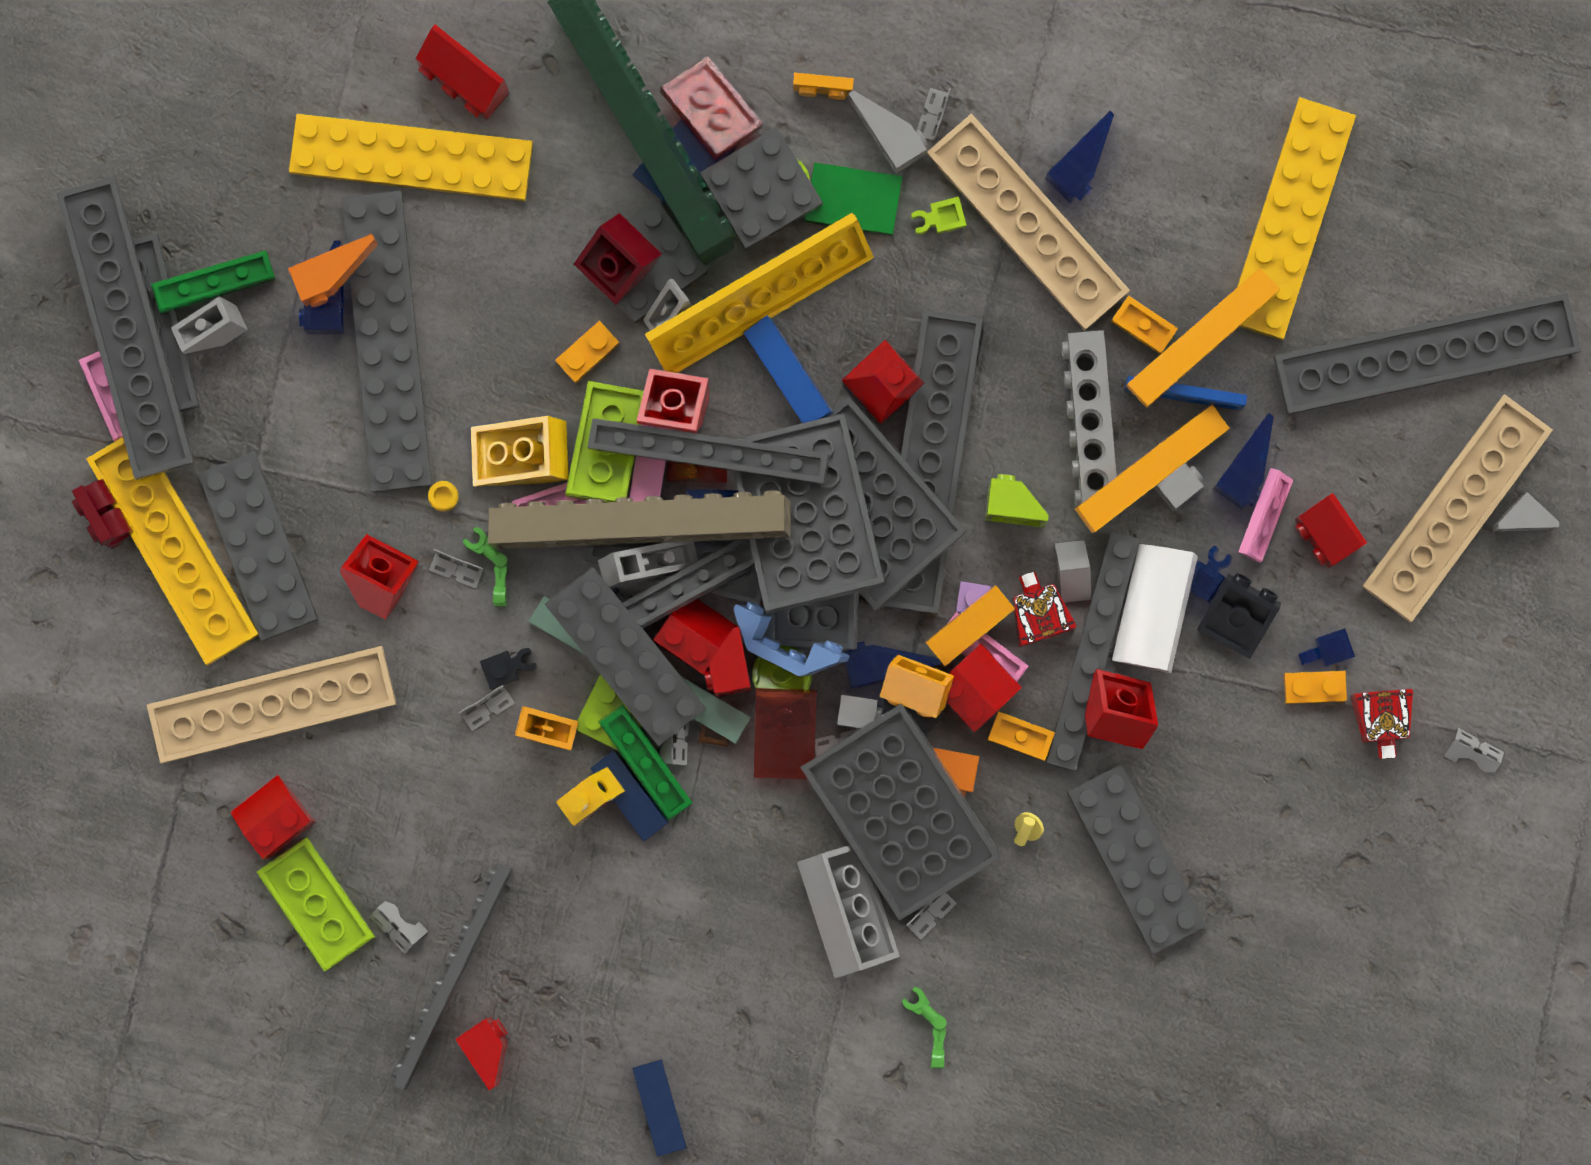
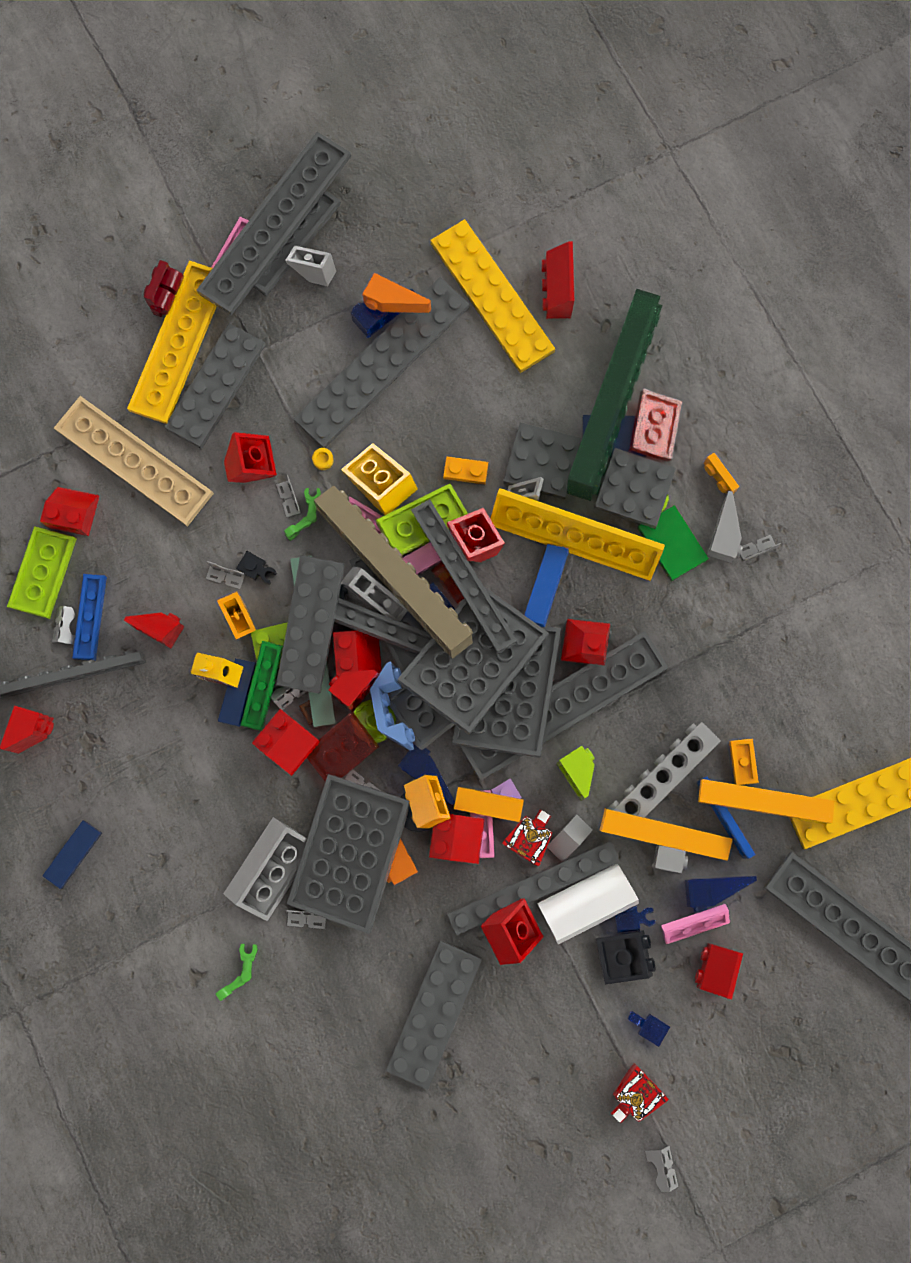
camera: 50 degrees right, 5 degrees down
(212, 281) = (340, 249): green tile -> none
(411, 891) = (89, 617): none -> blue tile
(487, 823) = (157, 626): none -> red slope
(617, 258) = (529, 441): dark red slope -> none
(729, 785) = (285, 742): none -> red slope
(857, 712) = (387, 781): light grey brick -> none
(944, 215) = (707, 600): lime plate -> none
(1021, 736) = (450, 886): light orange plate -> none
(1028, 222) = (744, 649): tan plate -> none
(1028, 828) = (400, 935): light yellow plate -> none
(1077, 168) = (795, 651): clear blue slope -> none
(1315, 687) = (621, 1037): light orange plate -> none
(1457, 508) = (797, 1035): tan plate -> none
(1526, 515) = (828, 1081): light grey slope -> none

